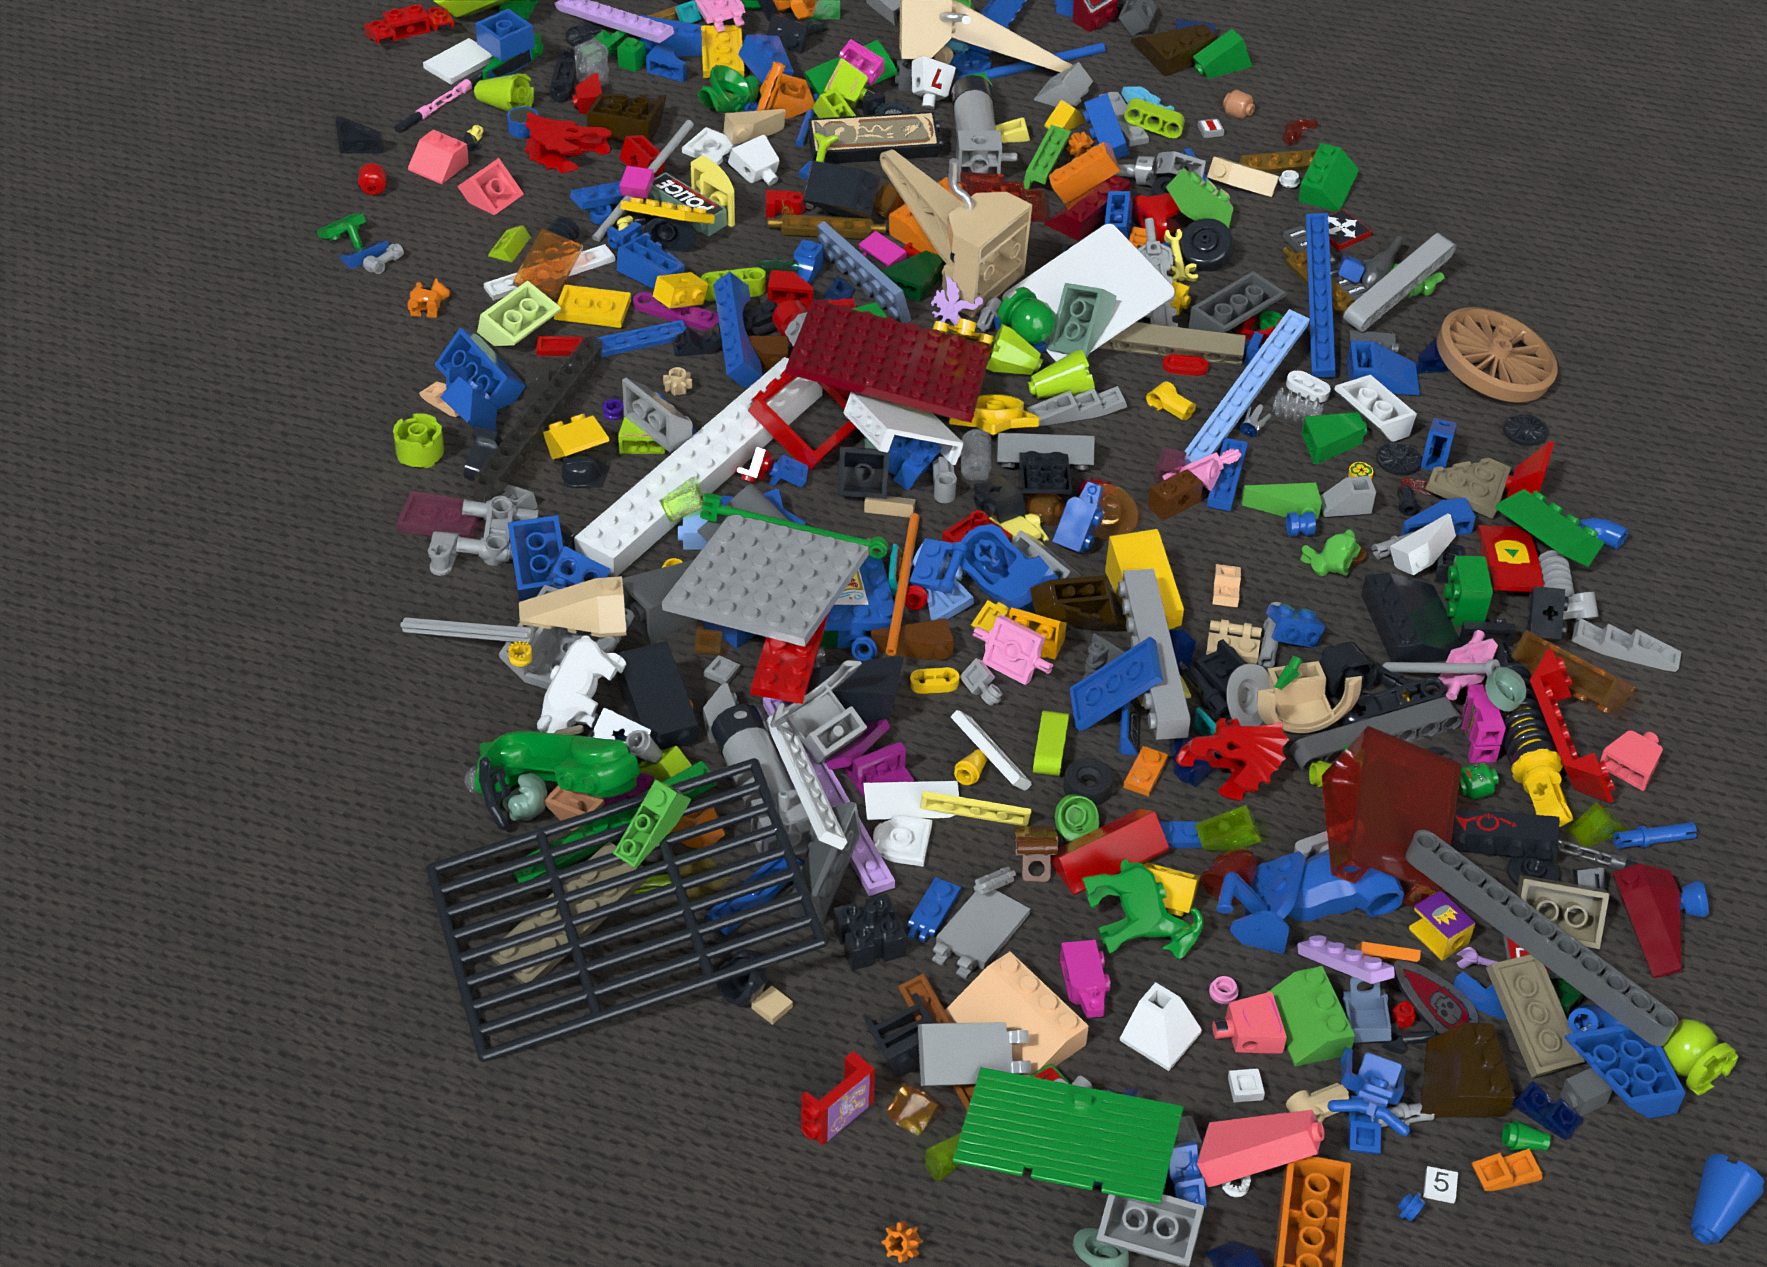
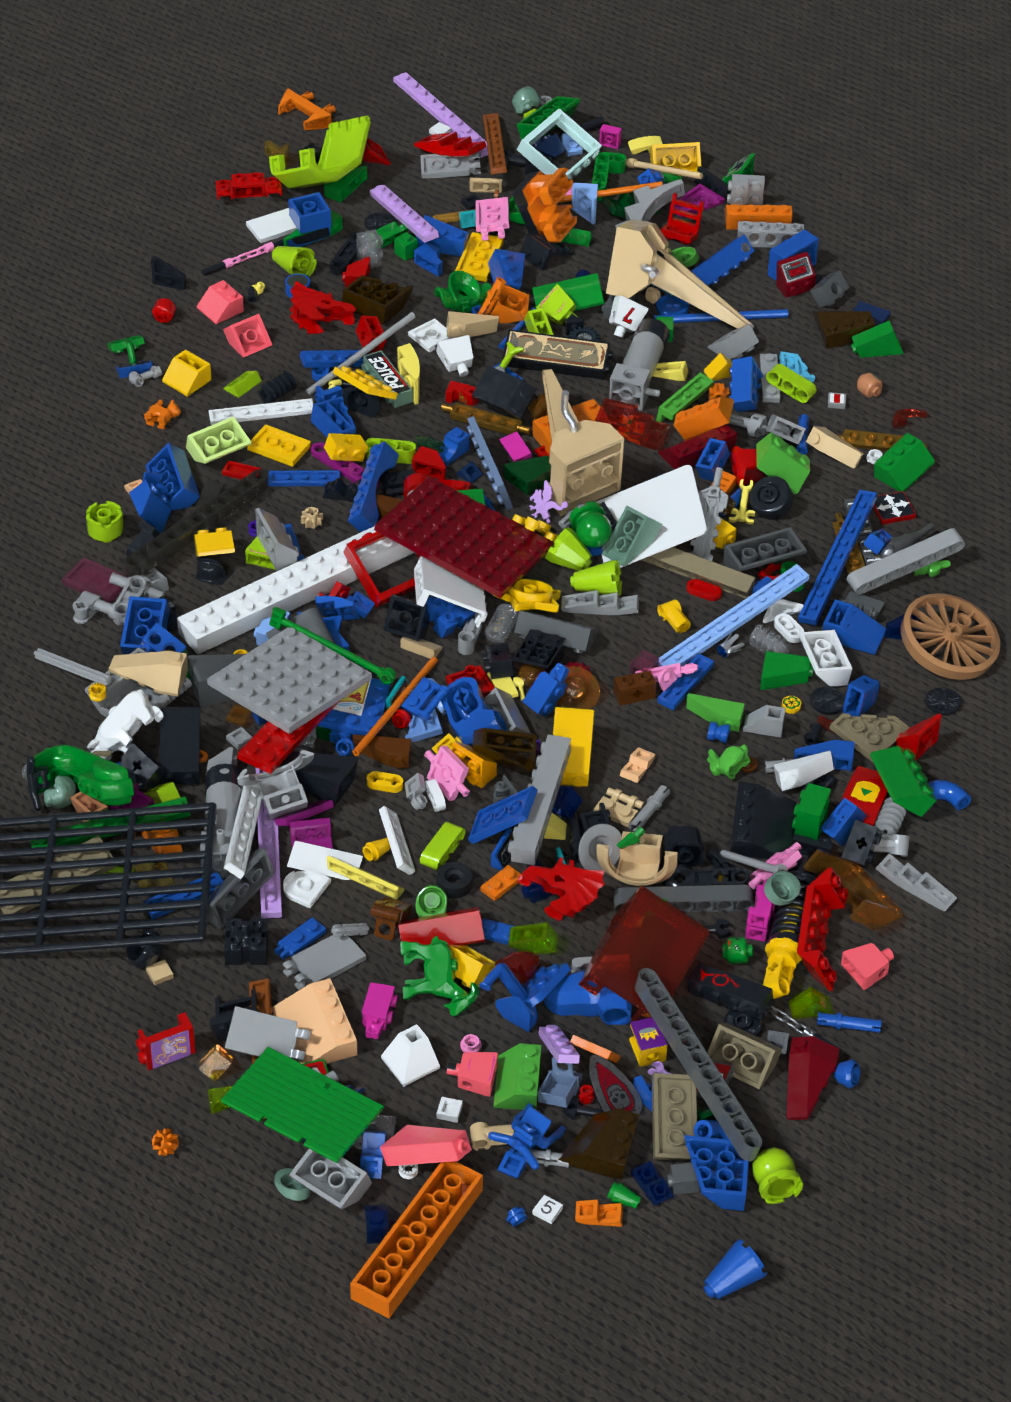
camera: 20 degrees right, 0 degrees up
(438, 244) = (187, 373): none -> yellow slope
(548, 263) = (259, 406): clear orange plate -> none
(637, 182) = (352, 354): dark pink piece -> none
(643, 746) = (147, 776): light grey cone -> none
(652, 822) = (125, 828): bright green slope -> none
(683, 500) = (263, 608): clear neon green slope -> none
(772, 477) = (337, 606): none -> blue slope
(863, 60) = (575, 289): dark pink hinge -> none
(1008, 681) = (435, 795): none -> white beam
(1288, 364) = (782, 607): none -> white tile
(1295, 625) = (667, 806): blue bracket -> none
(1510, 593) = (842, 820): none -> blue hinge

